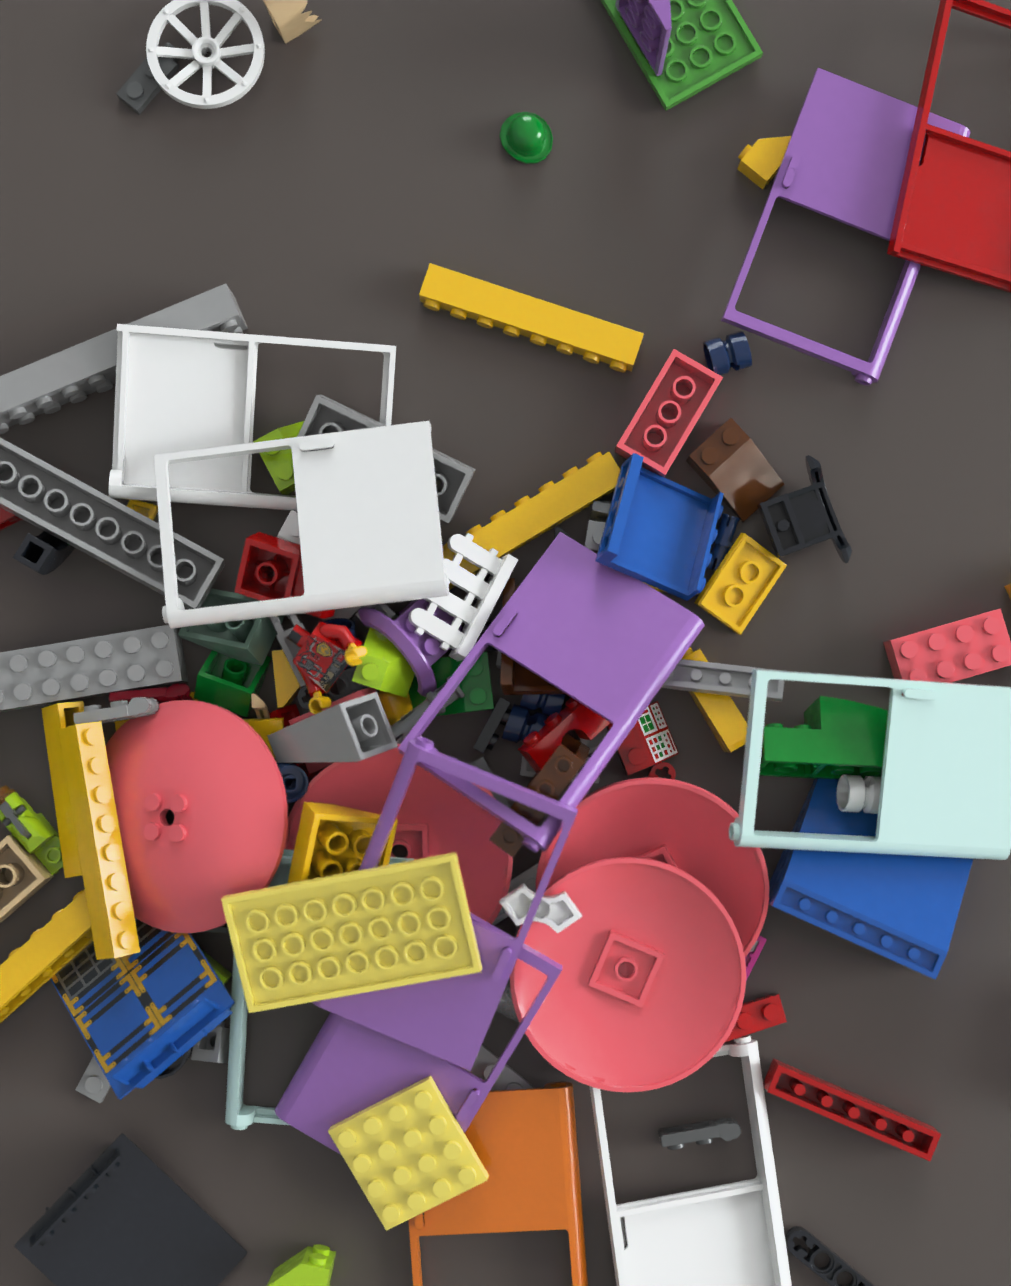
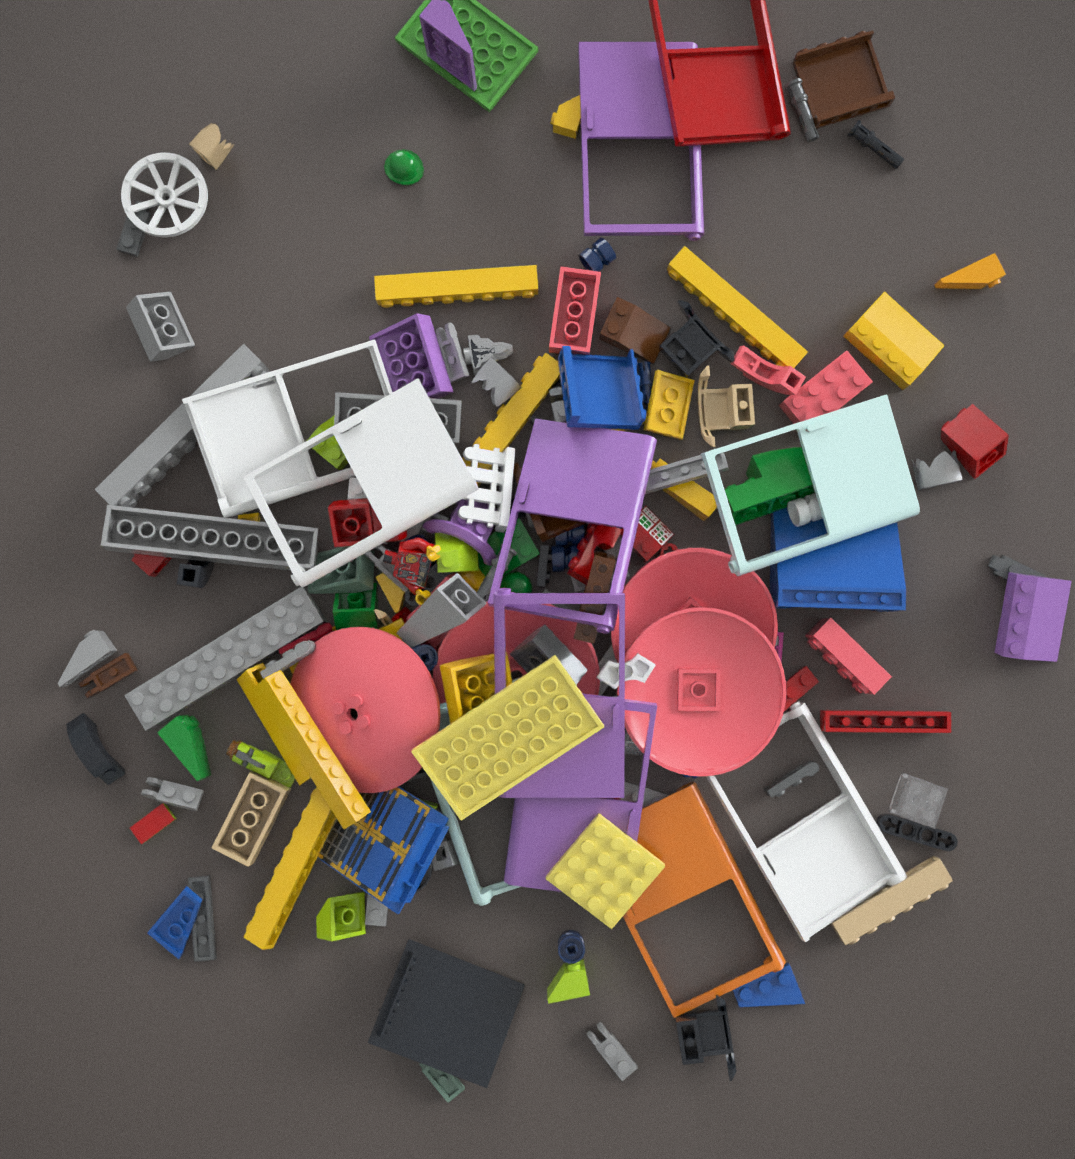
camera: 25 degrees left, 0 degrees up
(49, 1069) = (342, 917): none -> lime slope
(131, 214) = (159, 325): none -> light grey slope
(325, 1230) = (571, 946): none -> dark blue wheel
(438, 385) = (413, 353): none -> medium lavender slope
(448, 832) = (543, 645): none -> dark grey slope
(449, 736) = (517, 583): none -> green hair
(488, 402) = (452, 353): none -> light grey hinge
(530, 420) = (483, 349): none -> light grey rock
(532, 462) = (498, 380): none -> light grey piece
(809, 617) = (724, 408): none -> tan piece
(837, 1006) = (847, 656): none -> coral brick
(851, 1229) = (918, 800): none -> clear brick
(879, 497) = (735, 309): none -> yellow brick
(890, 603) = (771, 376): none -> coral arch

